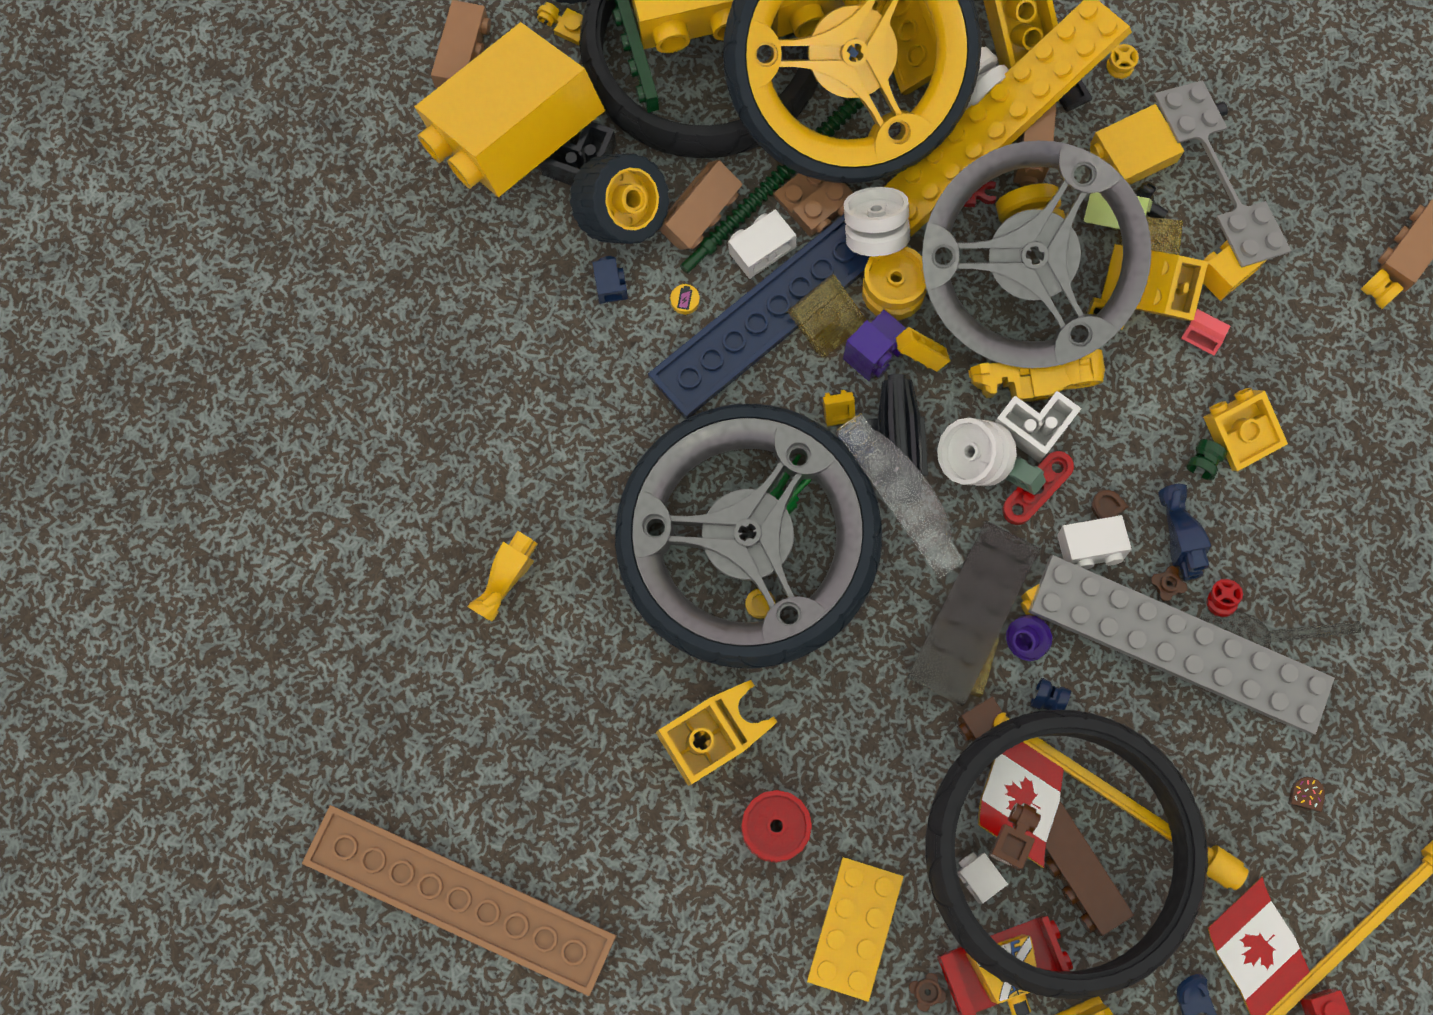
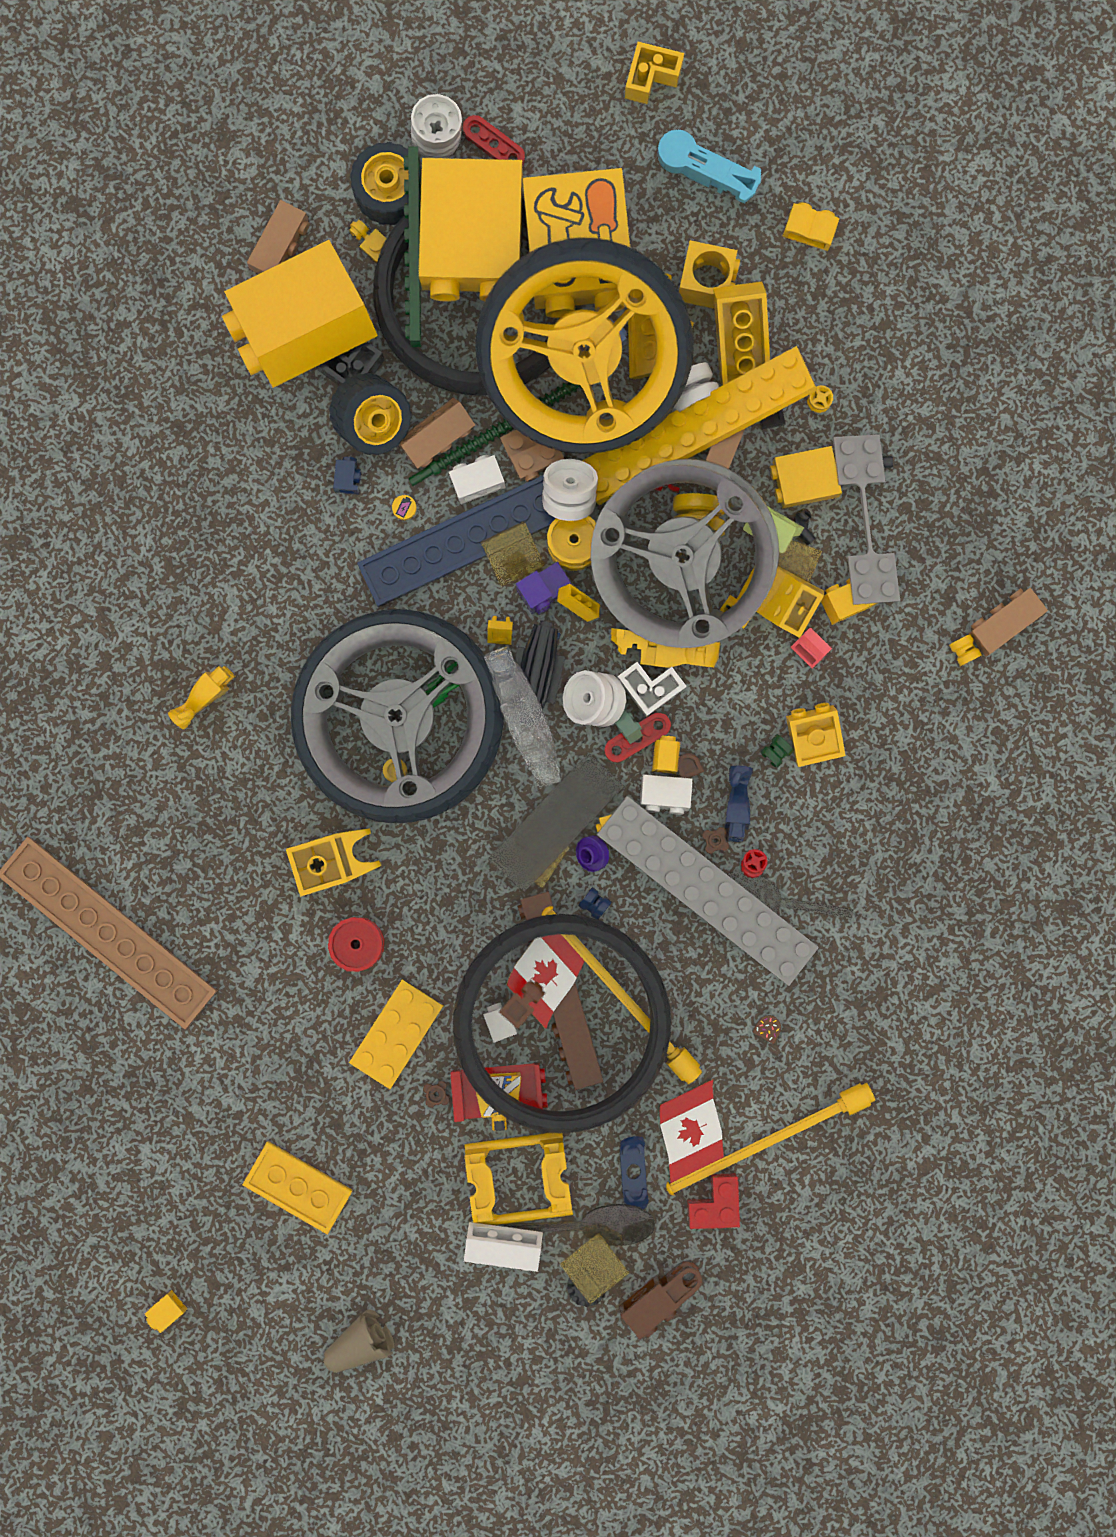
camera: 15 degrees right, 10 degrees up
(1082, 496) = (666, 755): none -> yellow brick

